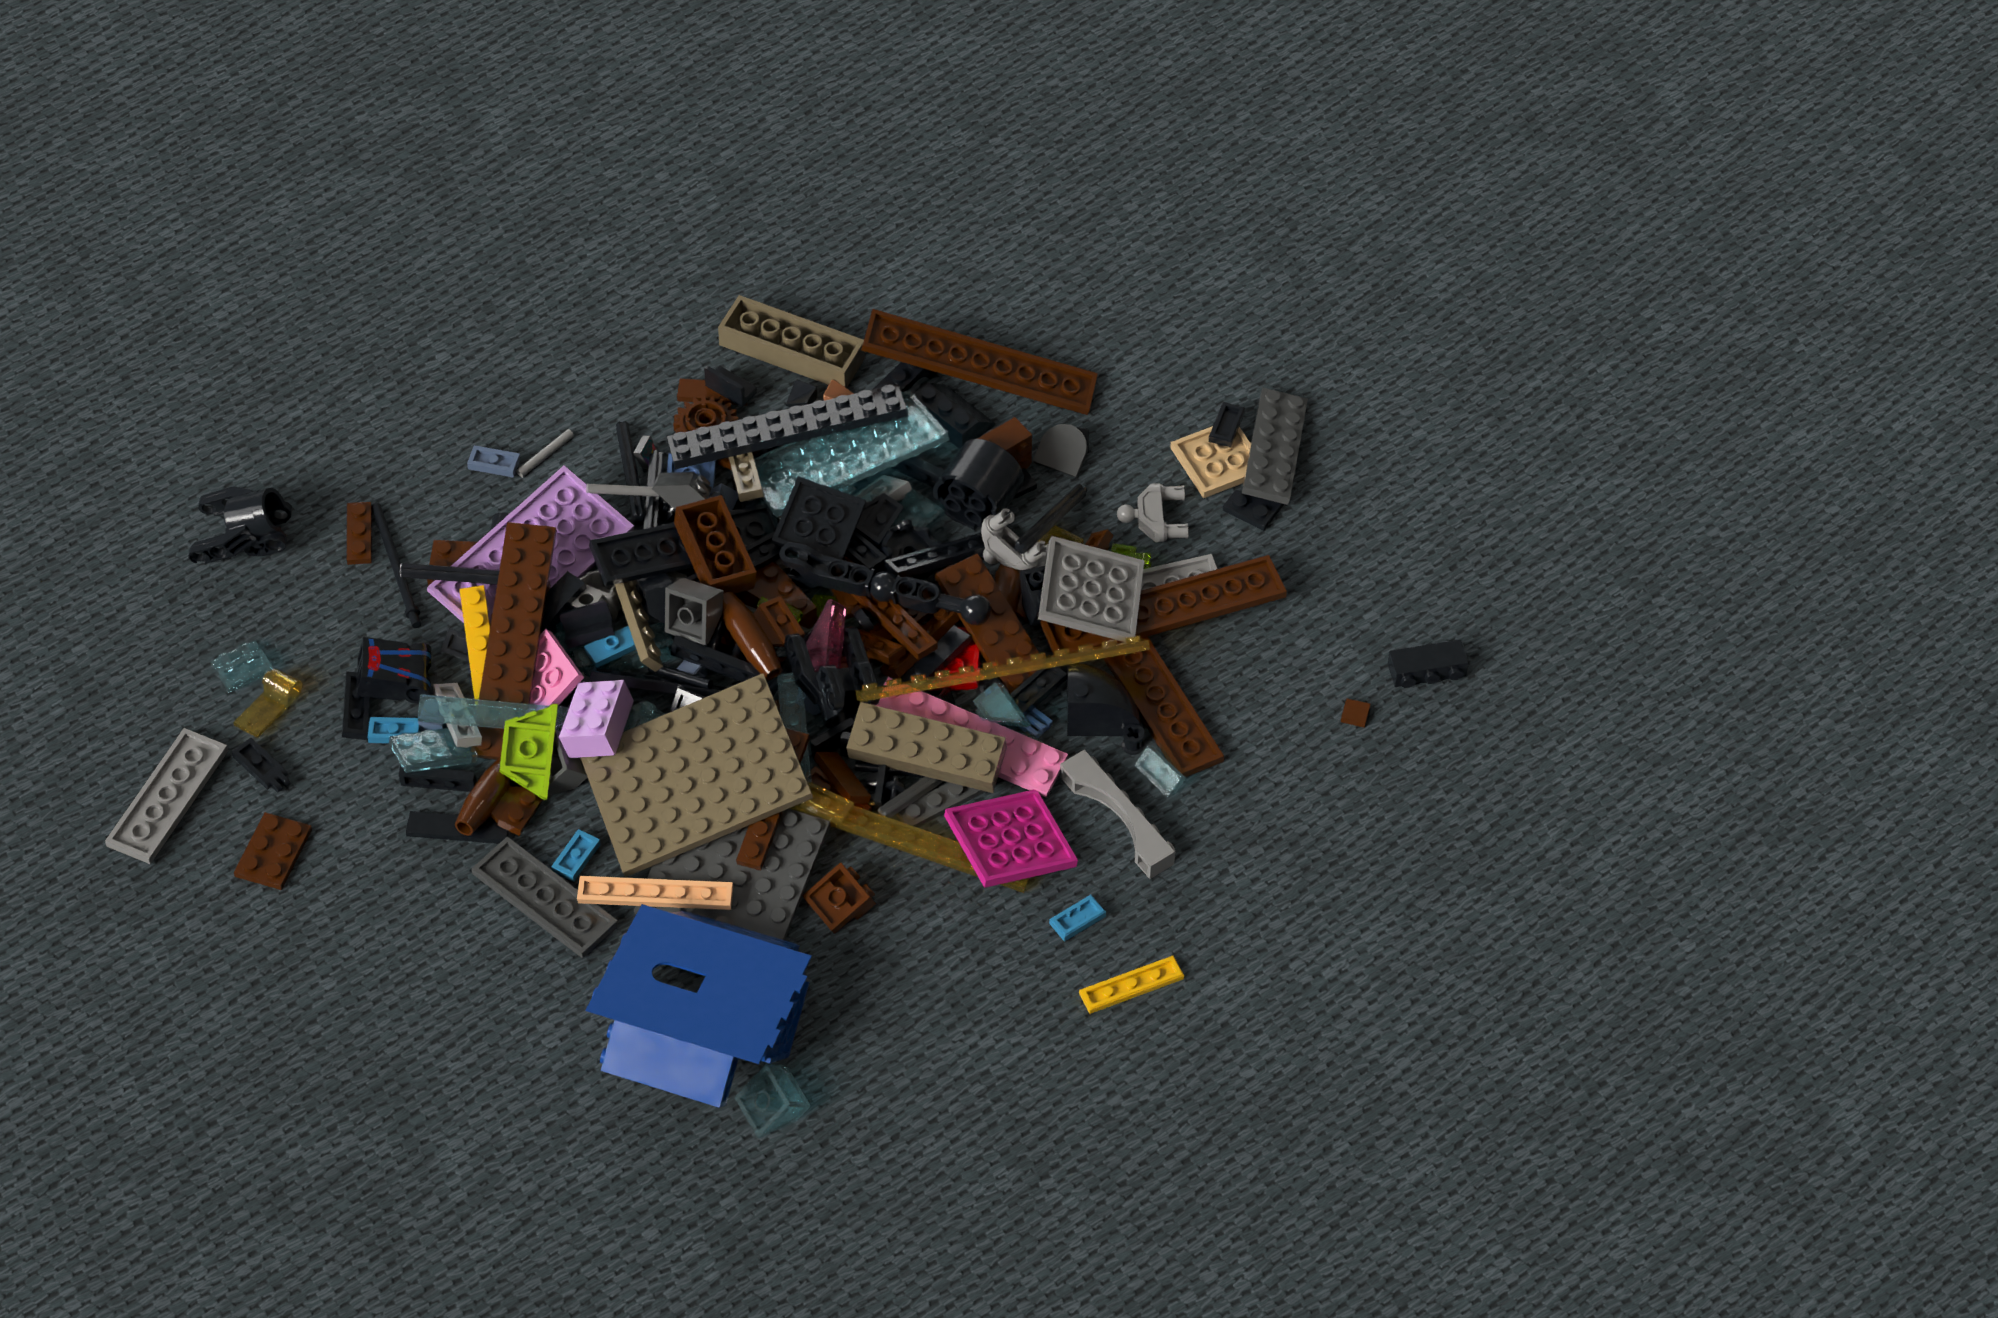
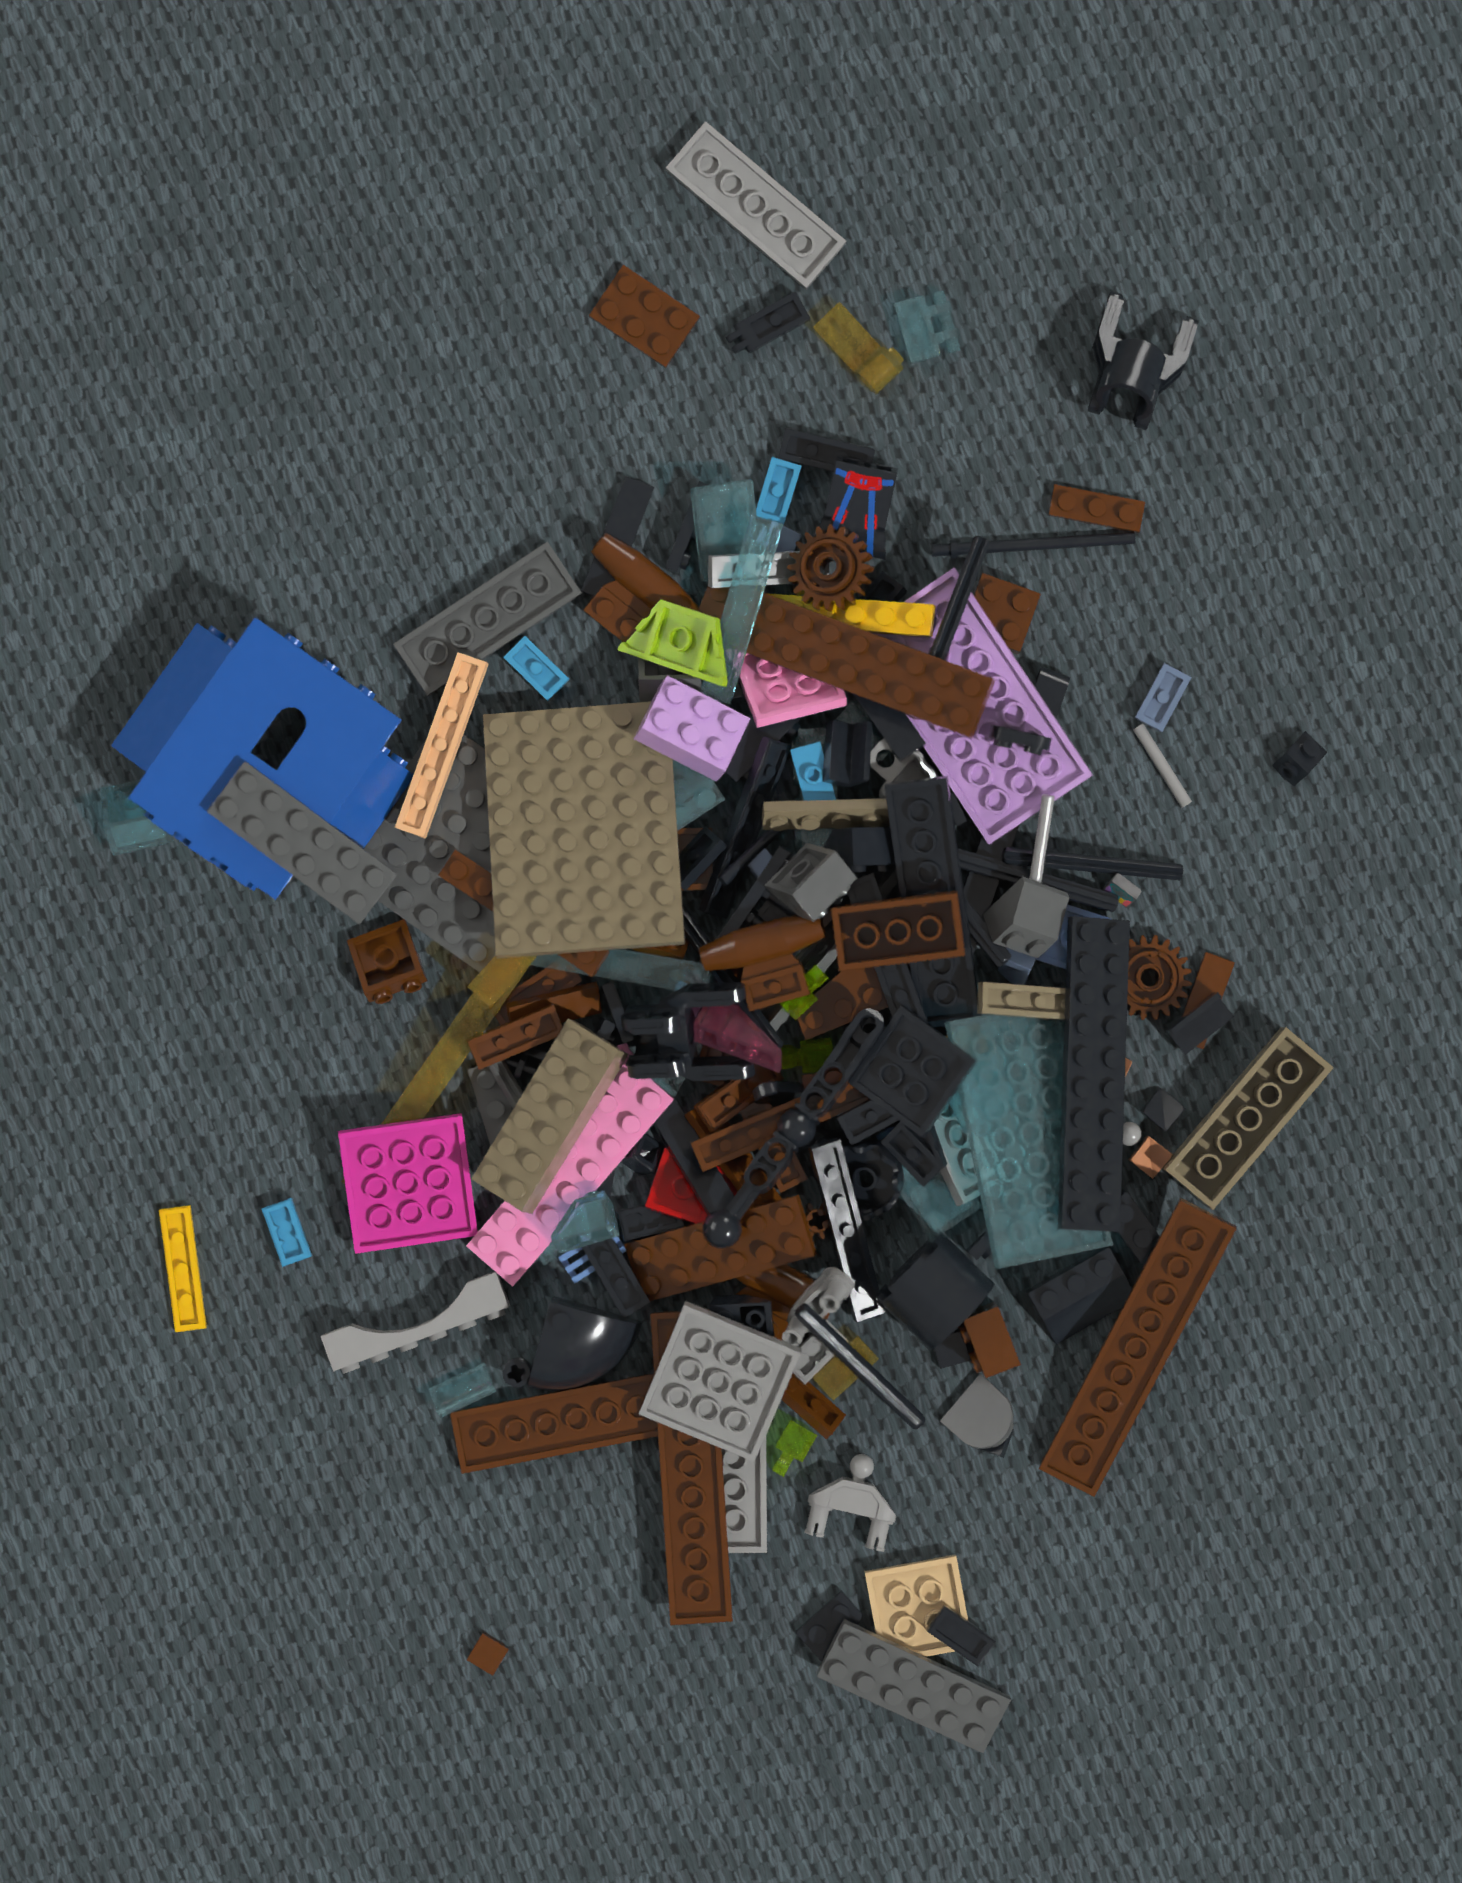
camera: 105 degrees right, 35 degrees up
(447, 651) = (845, 579): none -> reddish brown gear
(518, 371) = (1299, 759): none -> black bracket
(548, 503) = (1033, 743): none -> black plate
(759, 944) = (302, 842): none -> dark grey plate
(872, 786) = (515, 1036): none -> reddish brown plate
(992, 669) = (623, 1236): clear yellow plate -> none
(1427, 663) = (527, 1765): black brick -> none

